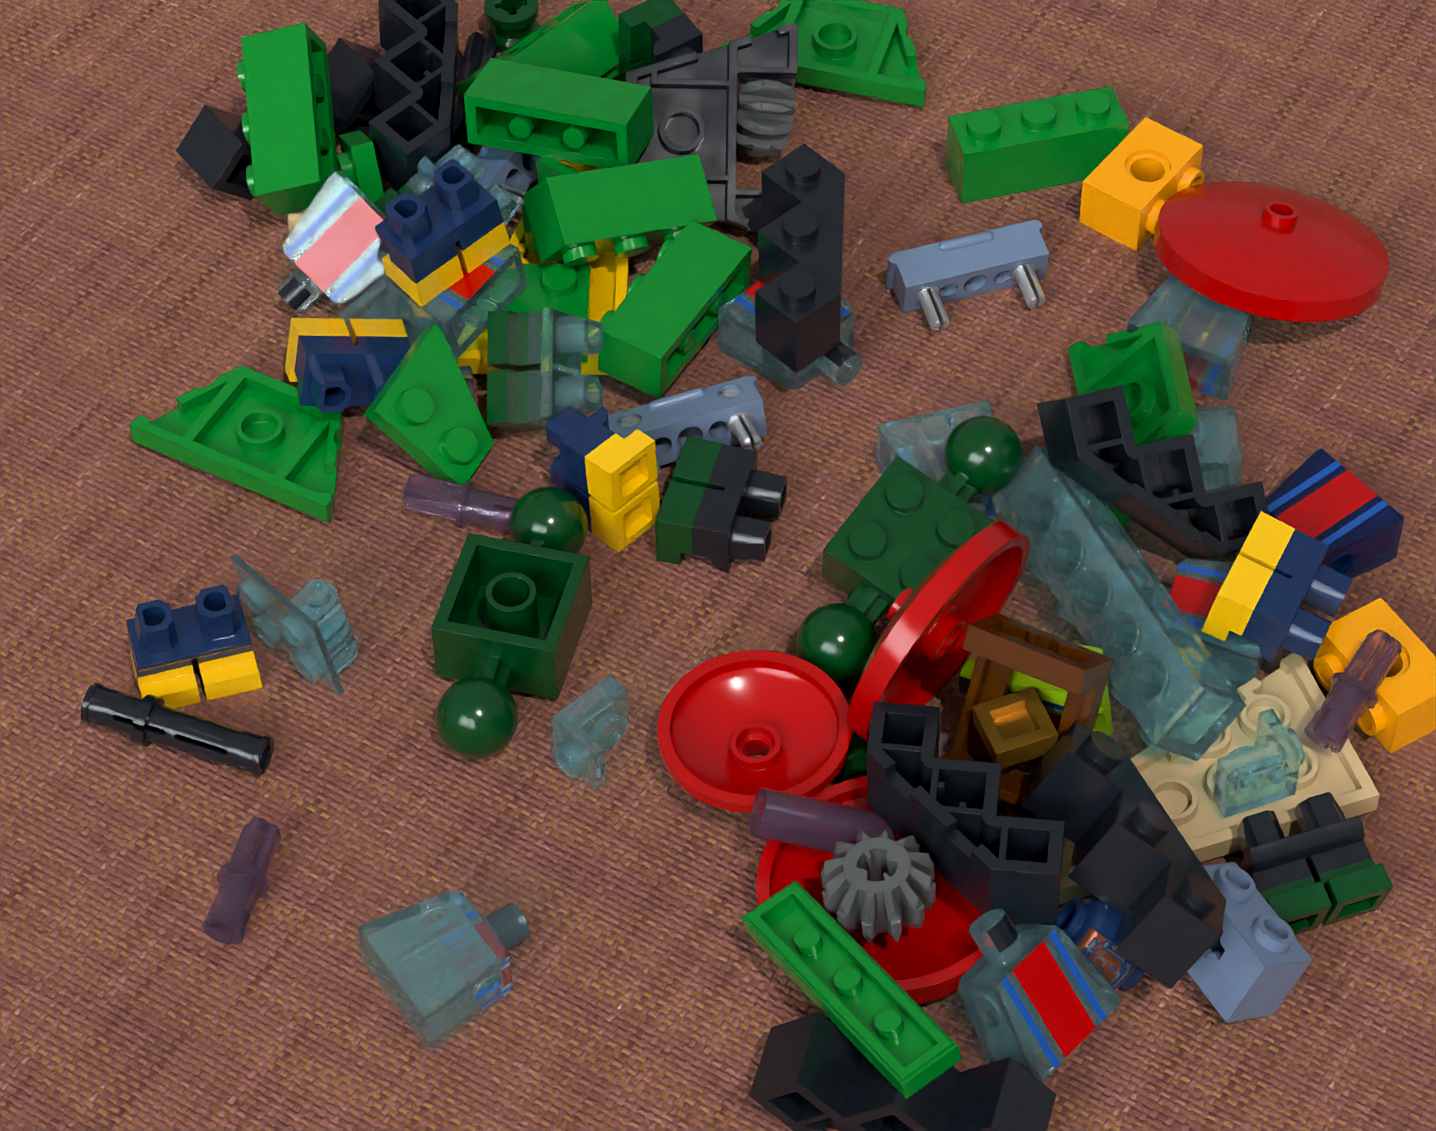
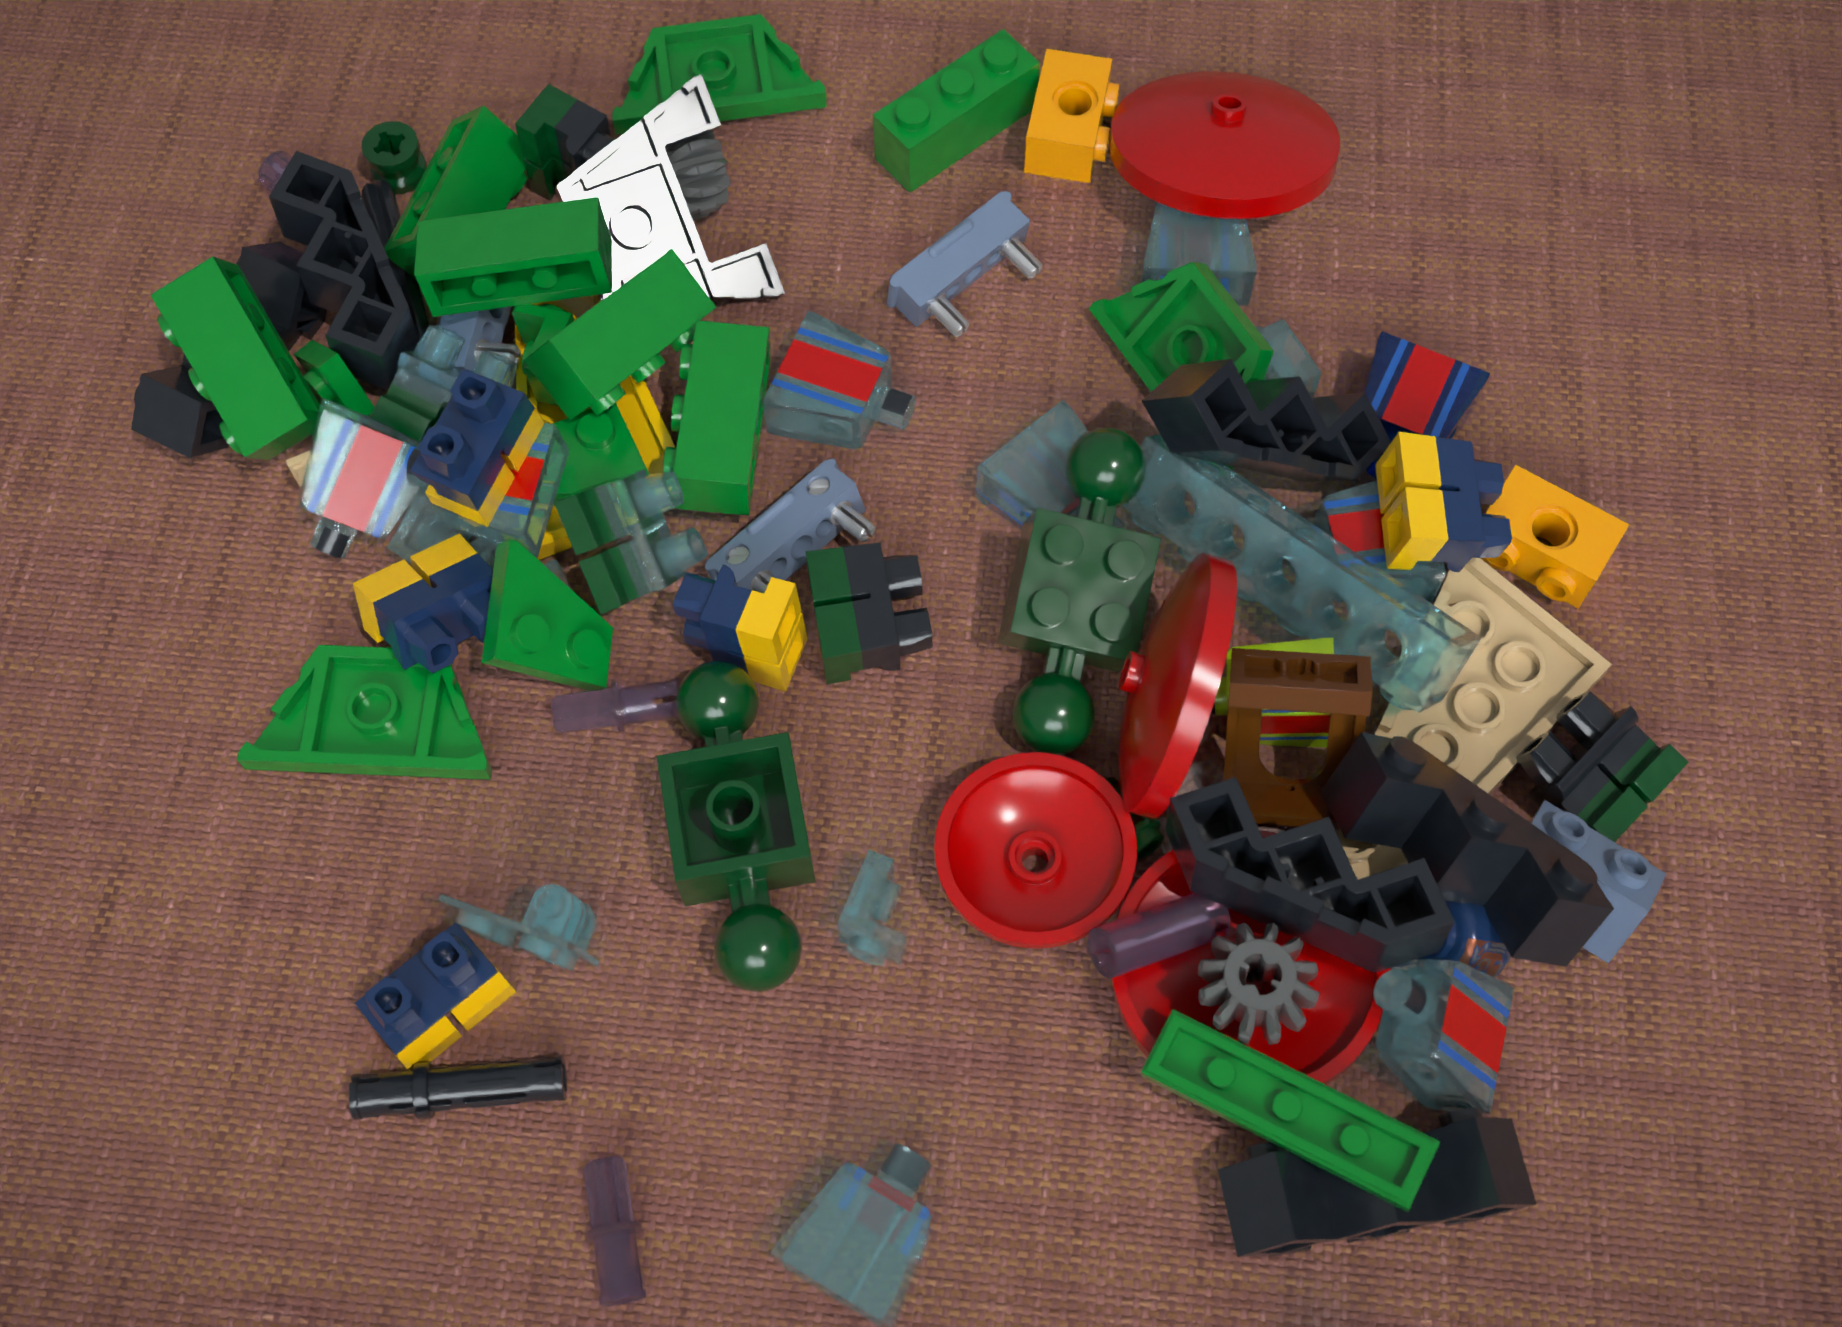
camera: 25 degrees left, 15 degrees up
(800, 258) = (825, 319): black brick -> none
(1015, 728) = (1290, 753): pearl gold tile -> none
(1259, 773) = (1520, 683): clear light blue bracket -> none
(1353, 691) = (1552, 573): axle -> none

